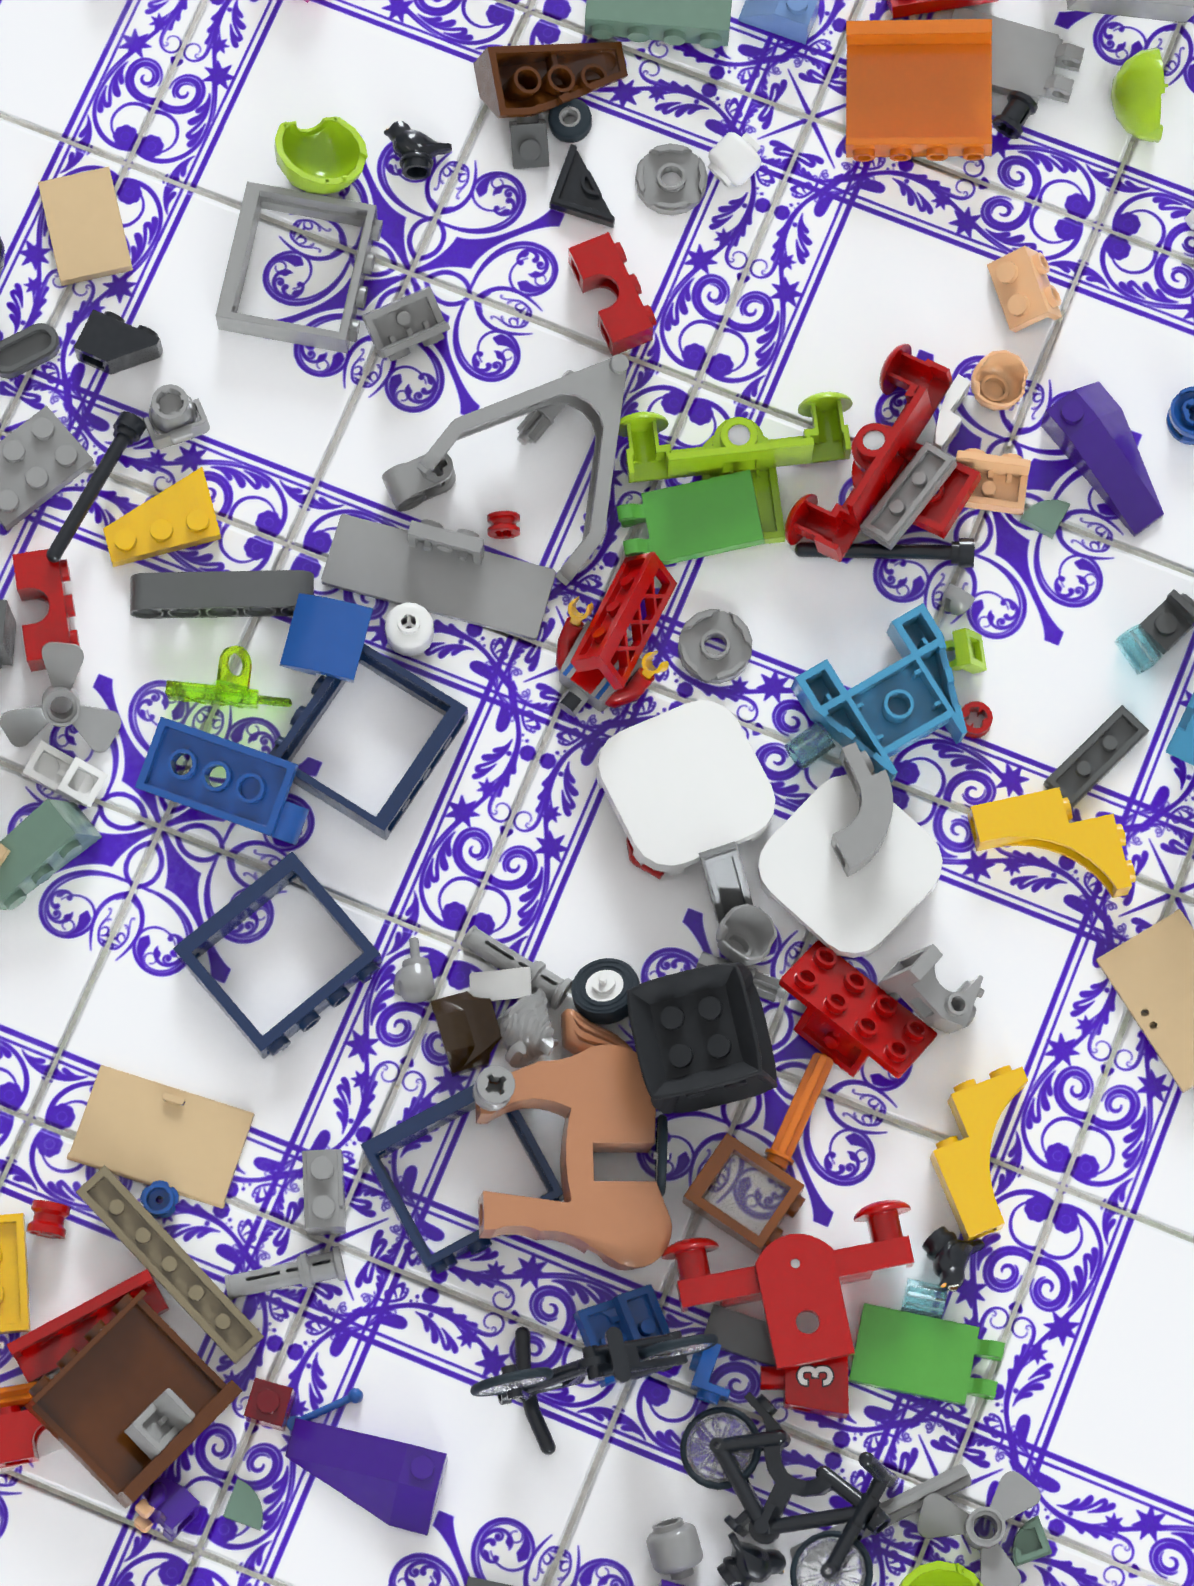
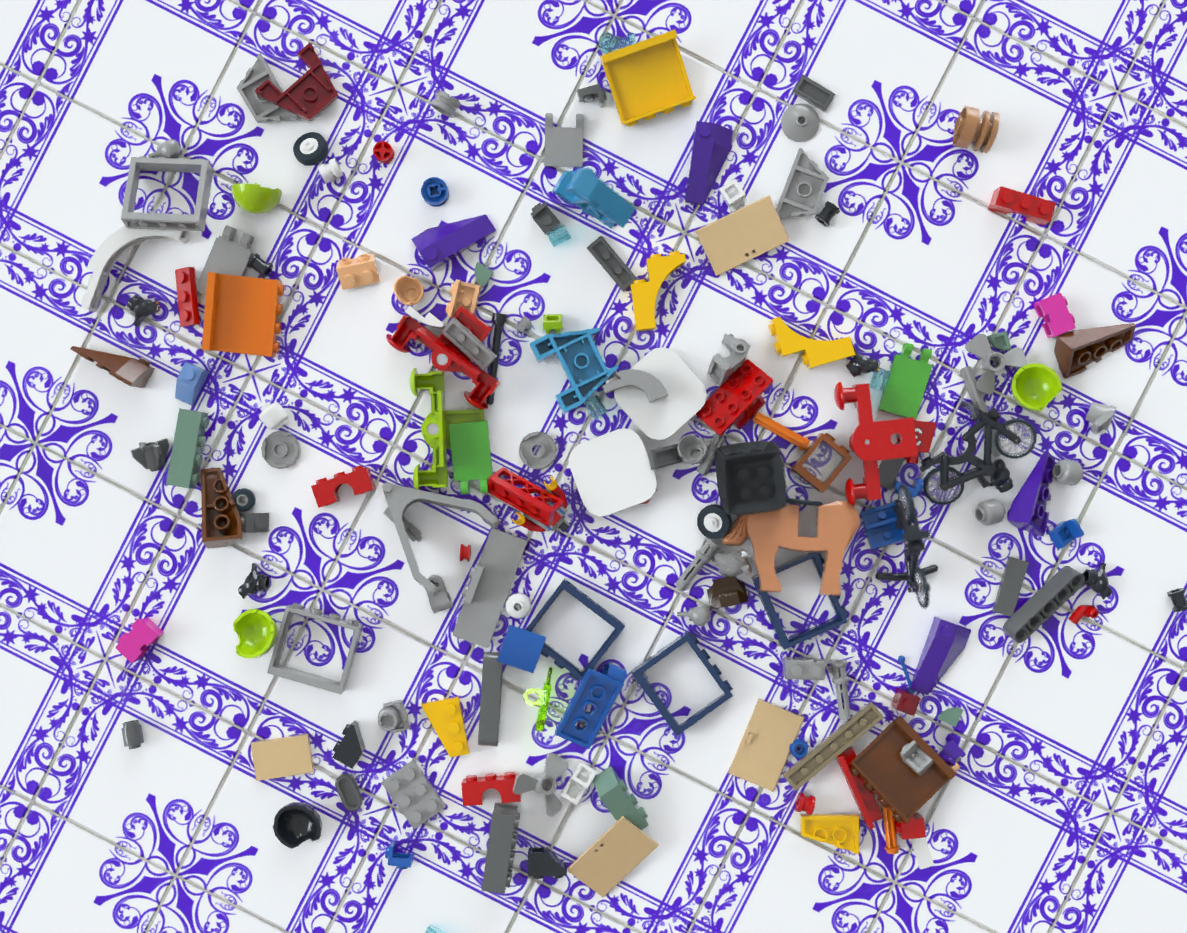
camera: 85 degrees left, 15 degrees up
(127, 429) = (399, 742): black piece -> none
(405, 324) = (352, 594): light grey bracket -> none
(488, 1094) = (771, 587): light grey wheel -> none
(501, 984) = (706, 573): white sticker -> none
(578, 192) = (284, 499): black tile -> none
(982, 709) = (591, 317): red bush -> none

